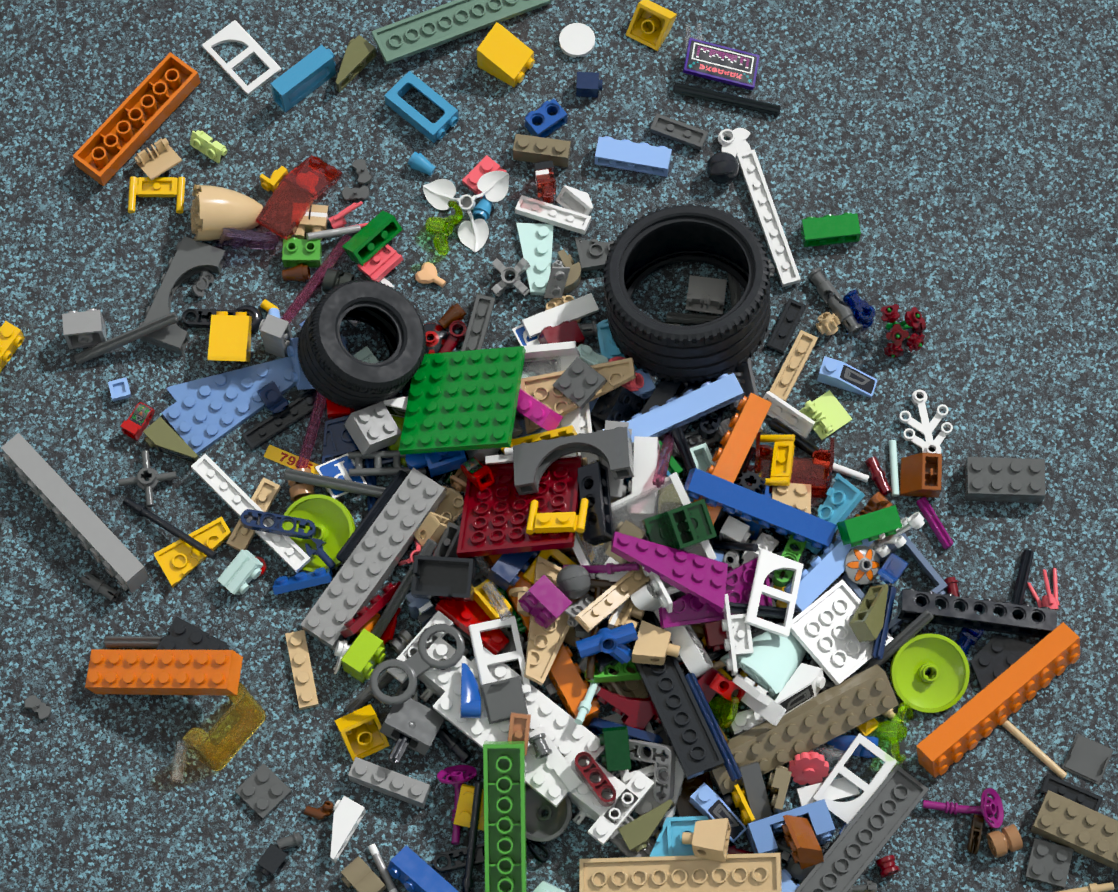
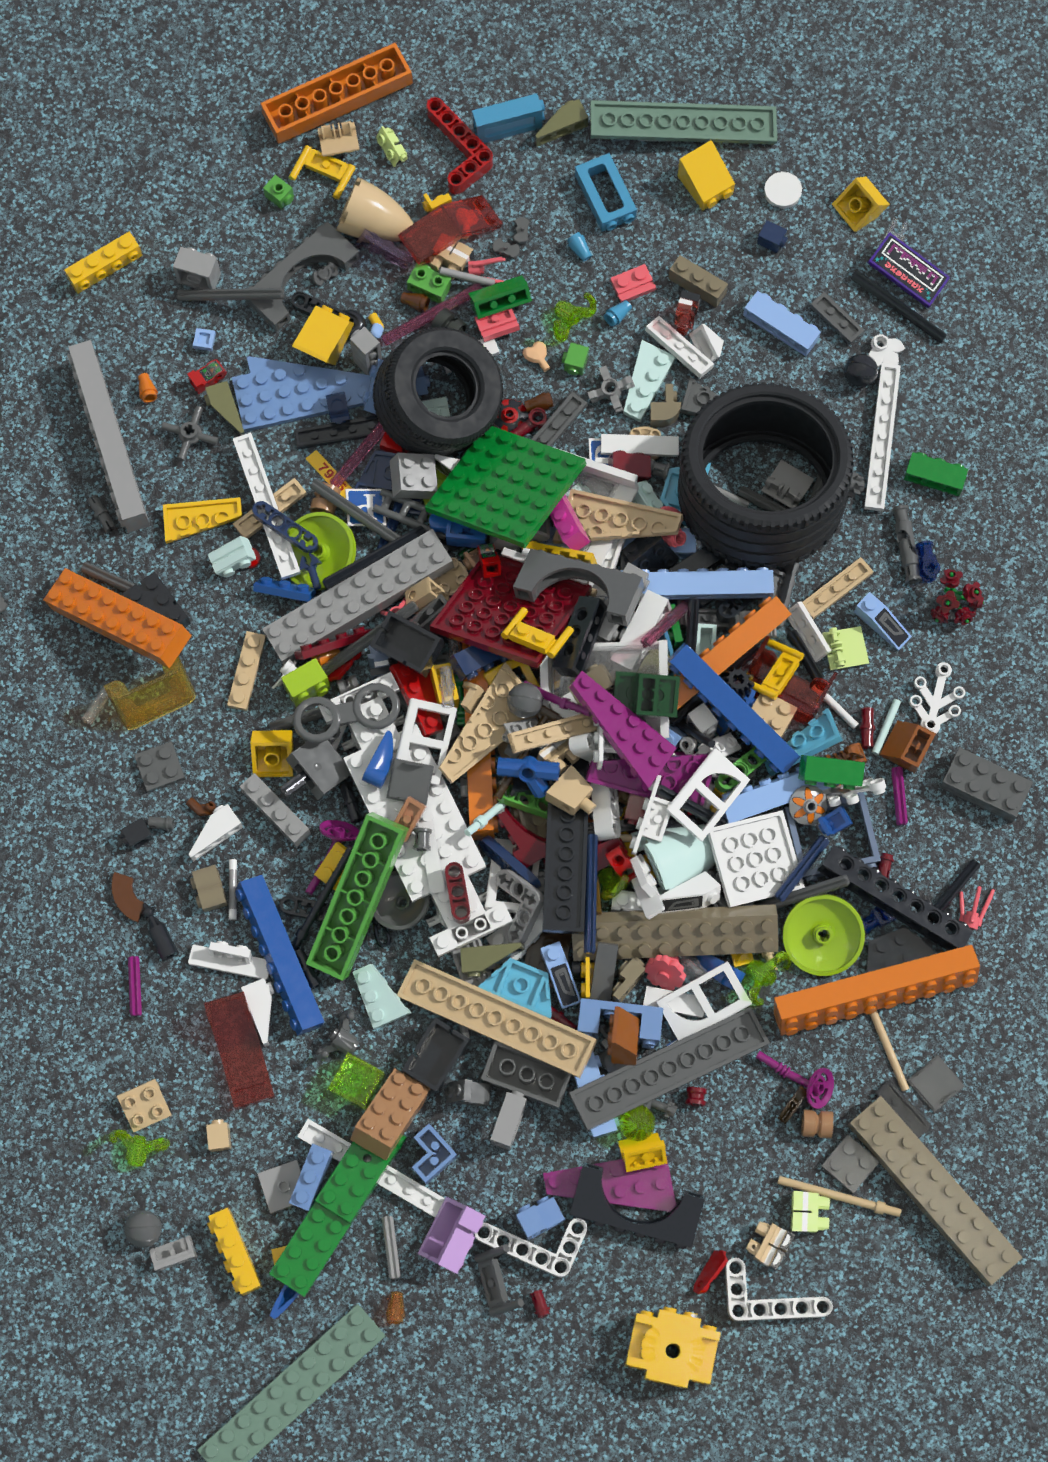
camera: 25 degrees right, 5 degrees up
(88, 456) = (147, 390): none -> orange cone
(125, 229) = (278, 192): none -> bright green brick
(141, 510) = (171, 460): black bar -> none
(235, 33) = (467, 50): white window -> none
(272, 117) = (462, 143): none -> red beam
(466, 264) = (575, 359): none -> bright green brick
(473, 232) = (599, 332): white plant -> none
(544, 602) = (487, 707): magenta brick -> none
(548, 122) = (717, 258): blue brick -> none
(556, 280) = (650, 410): light grey hinge -> none
(579, 383) = (622, 516): dark grey plate -> none
(616, 748) = (491, 873): dark green brick -> none
(709, 839) = (538, 996): tan torso -> none
(786, 326) = (849, 547): black tile -> none
(827, 323) = (889, 562): tan gear -> none
(870, 614) = (791, 855): olive slope -> none

